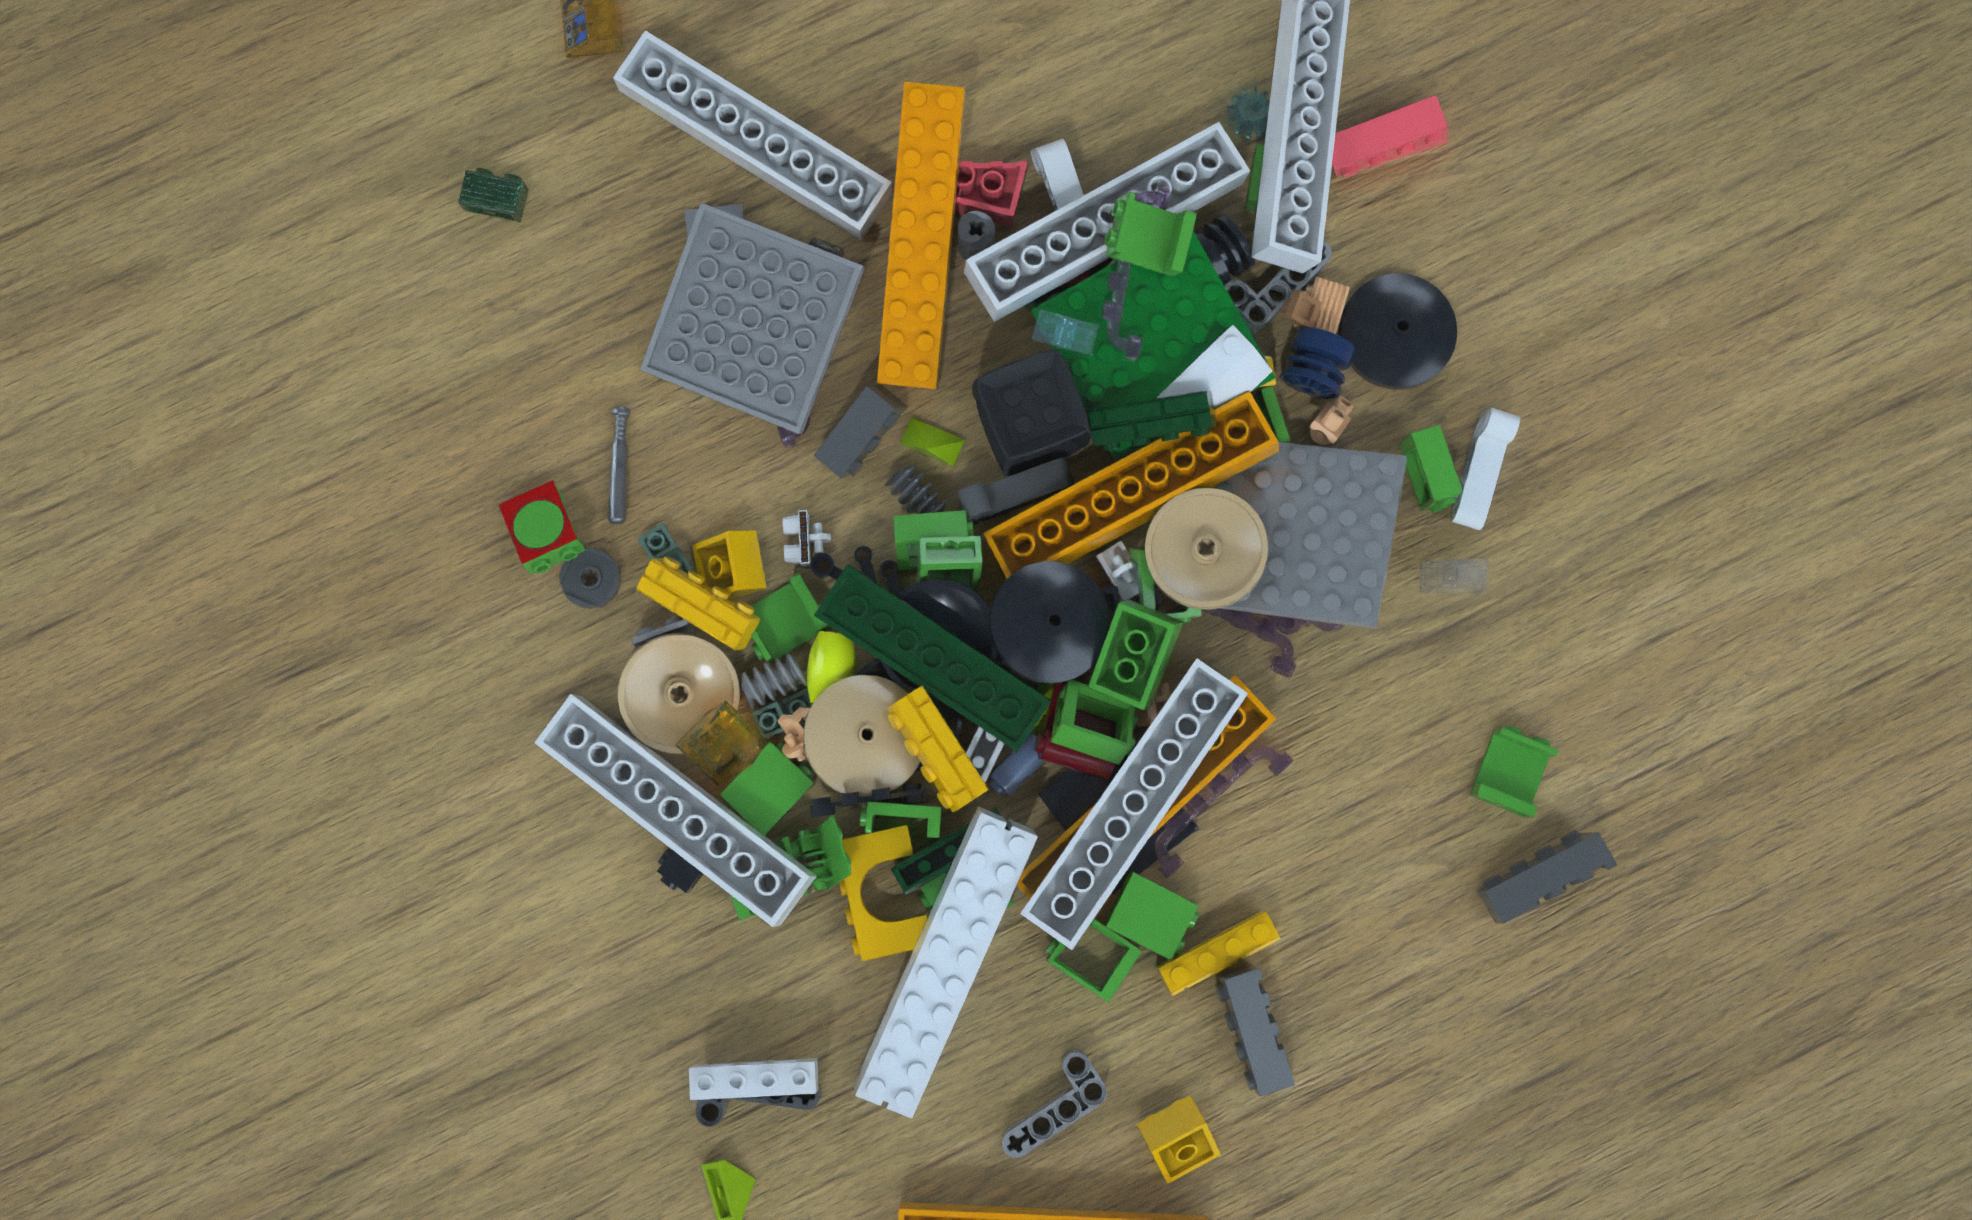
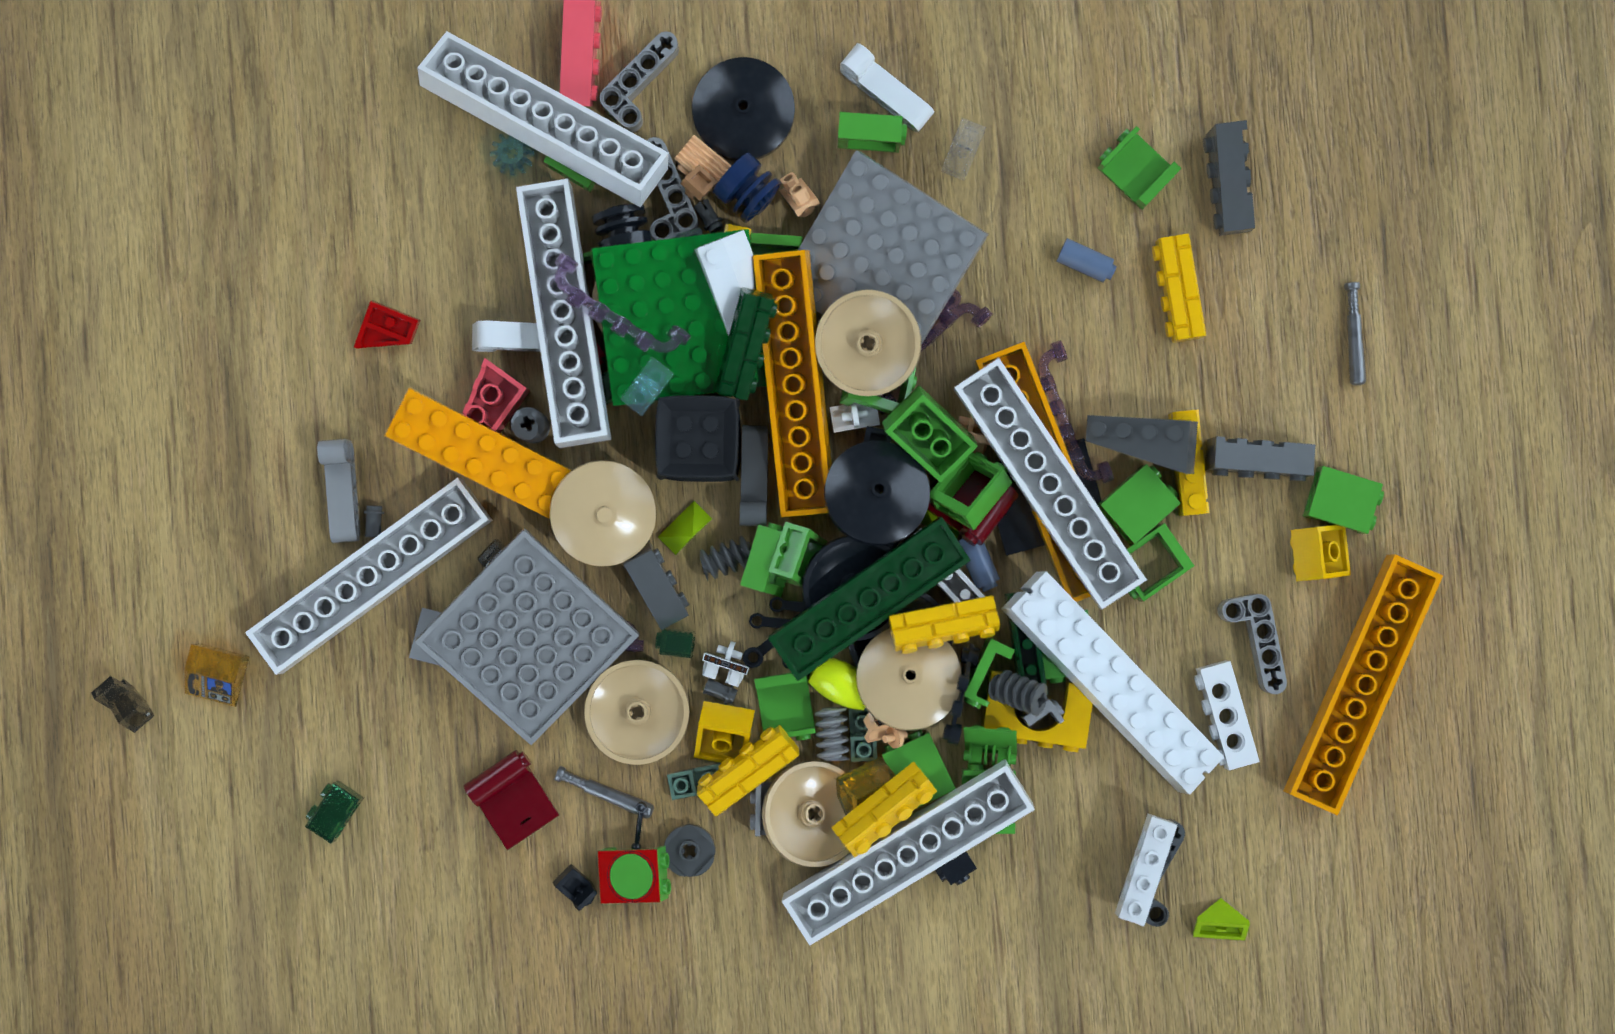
camera: 65 degrees left, 5 degrees up
(506, 473) = (576, 887): none -> black bracket
(576, 368) = (509, 796): none -> dark red door
(615, 508) = (640, 808): none -> black hinge
(710, 764) = (884, 809): none -> yellow brick
(716, 464) = (637, 712): none -> tan dish
(773, 545) = (720, 691): none -> dark grey pin
(806, 476) = (675, 643): none -> clear green brick
(814, 119) = (373, 520): none -> dark grey pin
(834, 73) = (340, 489): none -> light grey beam
(883, 889) = (1051, 707): none -> light grey bracket
(894, 860) = (1018, 692): none -> dark grey piece
(912, 342) = (602, 513): none -> tan dish
(925, 1140) = (1244, 752): none -> white brick
(1018, 55) = (385, 327): none -> red wing
(1149, 236) = (595, 285): bright green panel -> none
(1227, 901) = (1153, 440): none -> dark grey wedge
(1247, 1142) = (1343, 500): none -> bright green panel
(1271, 337) = (708, 216): none -> dark grey pin
(1386, 216) = (643, 76): none -> light grey beam
(1390, 755) = (1086, 261): none -> sand blue brick
(1403, 868) = (1180, 288): none -> yellow brick
(1413, 1092) = (1355, 339): none -> flat silver piece

